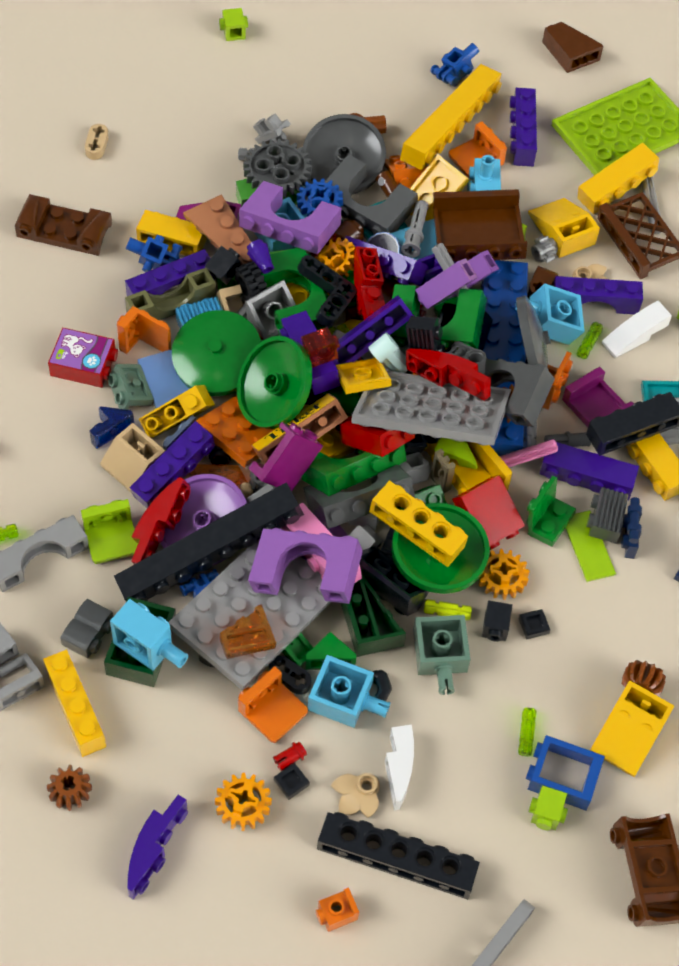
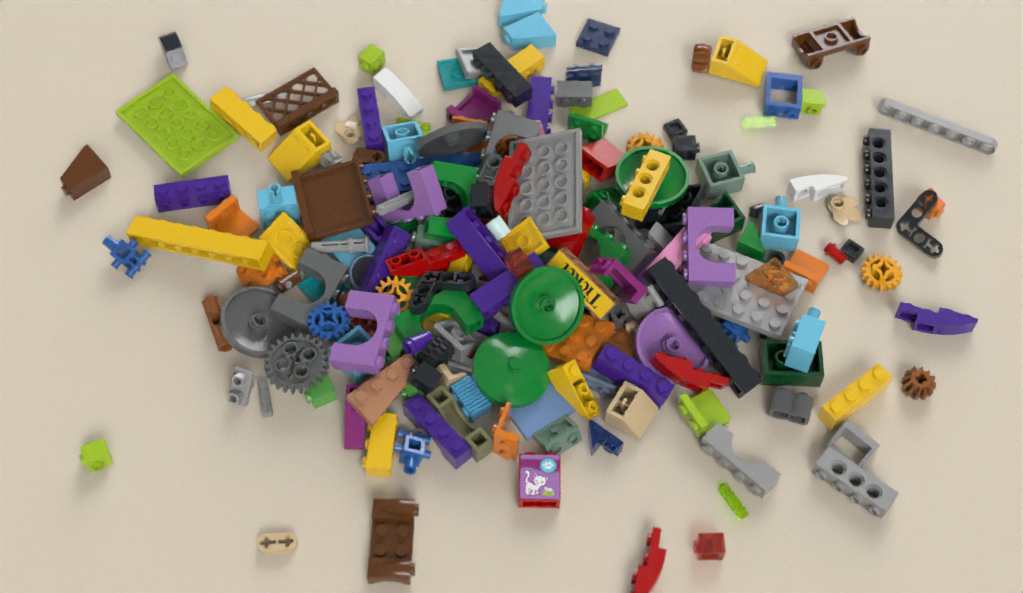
camera: 100 degrees left, 0 degrees up
(307, 871) = (913, 222): none -> black beam

